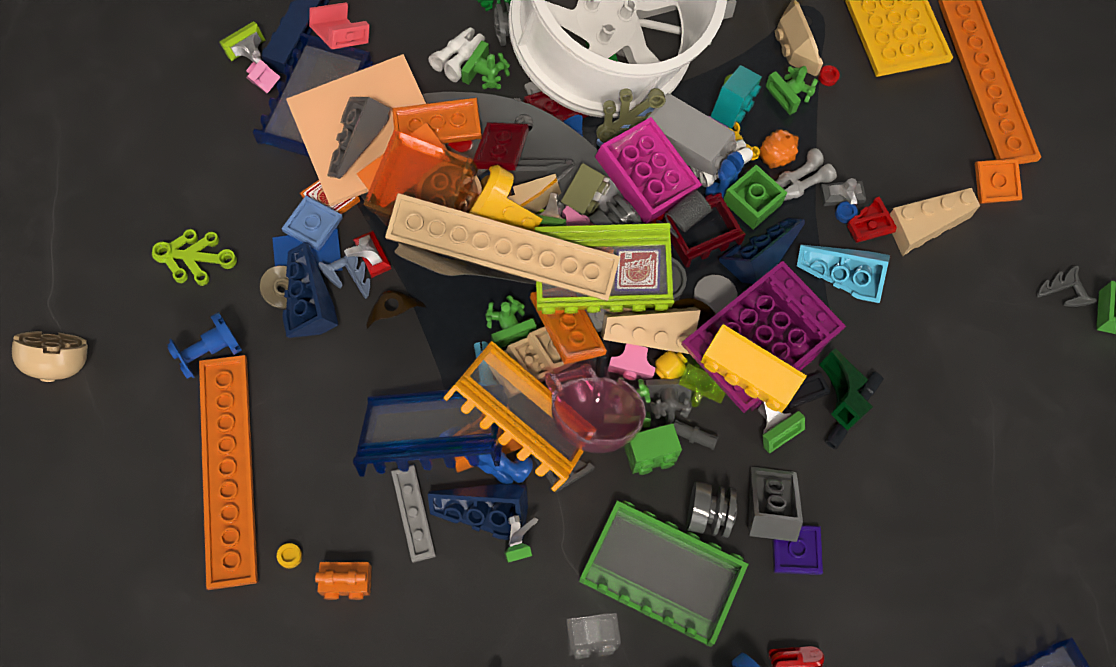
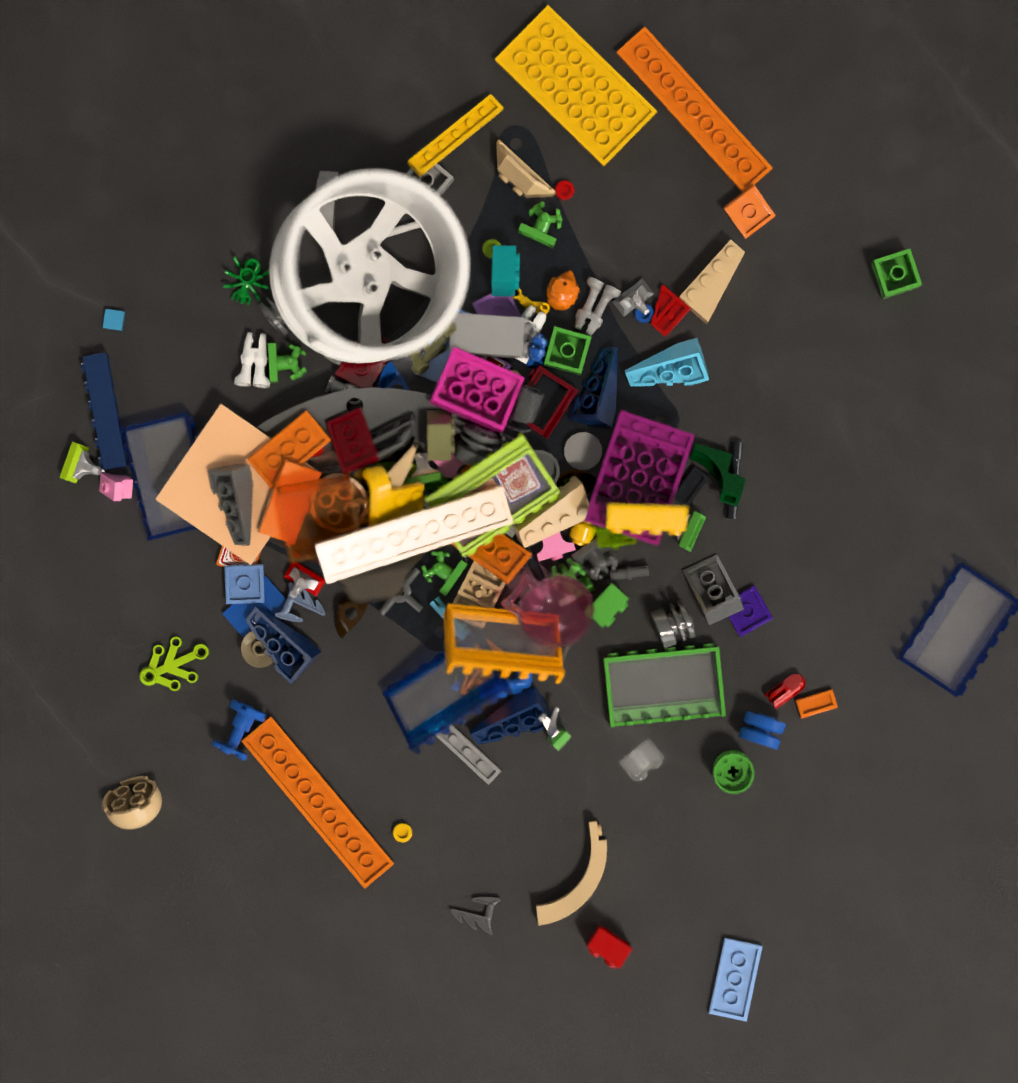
camera: 25 degrees left, 20 degrees up
(335, 29) = (144, 405): coral panel -> none
(344, 579) = (452, 825): orange brick -> none
(452, 322) = (406, 597): none -> dark grey bar
(1070, 280) = (844, 266): dark grey piece -> none

